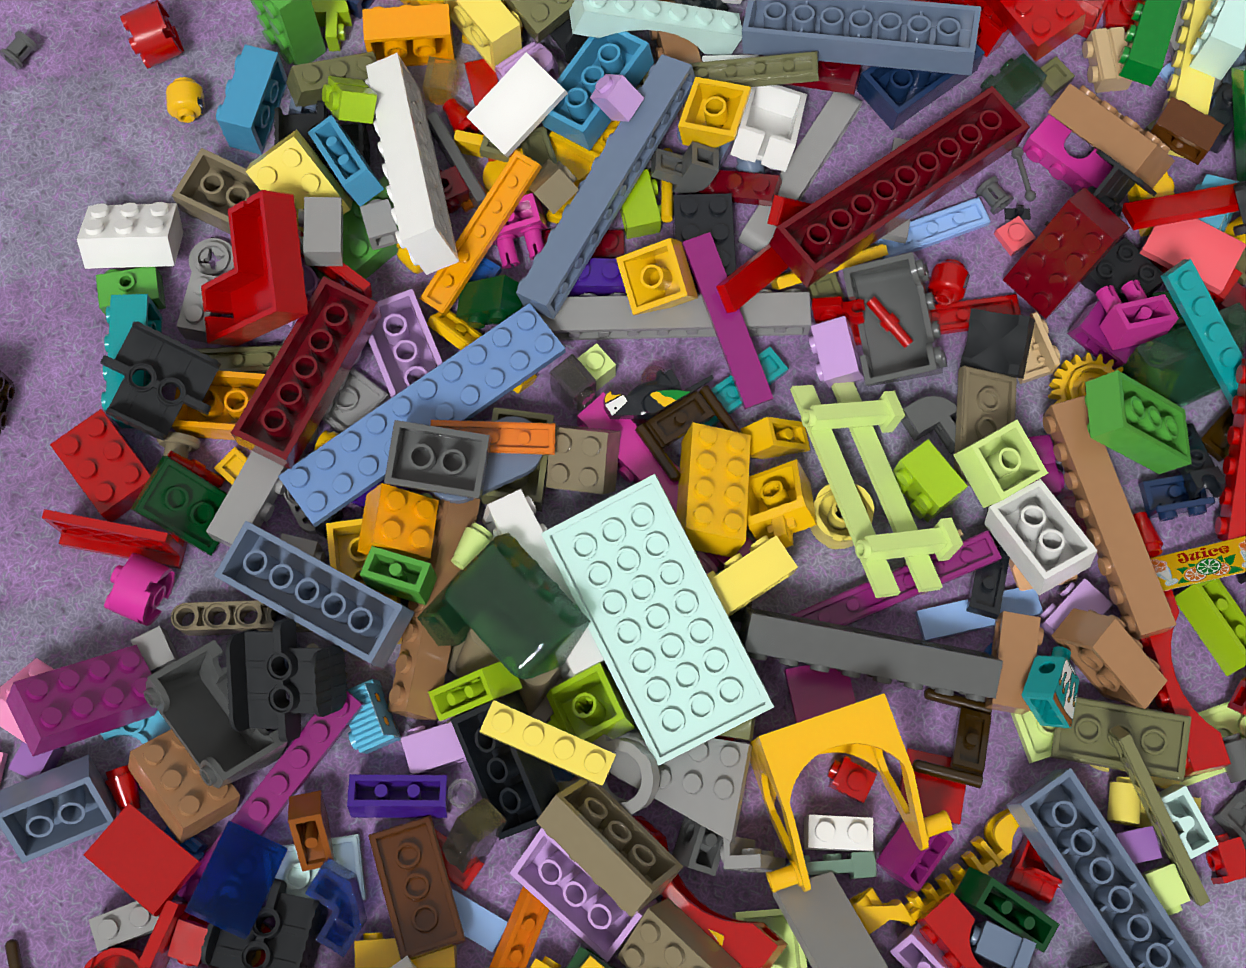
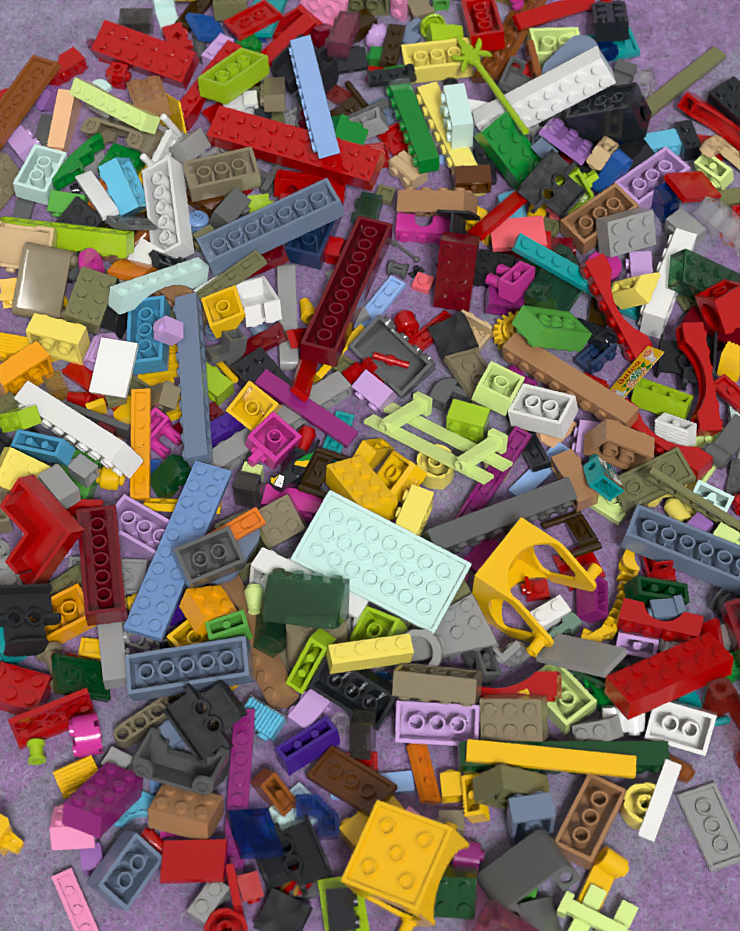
camera: 30 degrees left, 15 degrees down
(73, 564) = (36, 751): none -> lime bush
(94, 633) = (74, 775): none -> yellow brick
(637, 357) = (271, 441): none -> dark pink hinge
(700, 360) = (308, 436): none -> red cone
(832, 176) = (306, 310): none -> yellow cone
(928, 113) = (334, 250): none -> red brick
(1207, 684) = (676, 430): none -> white brick

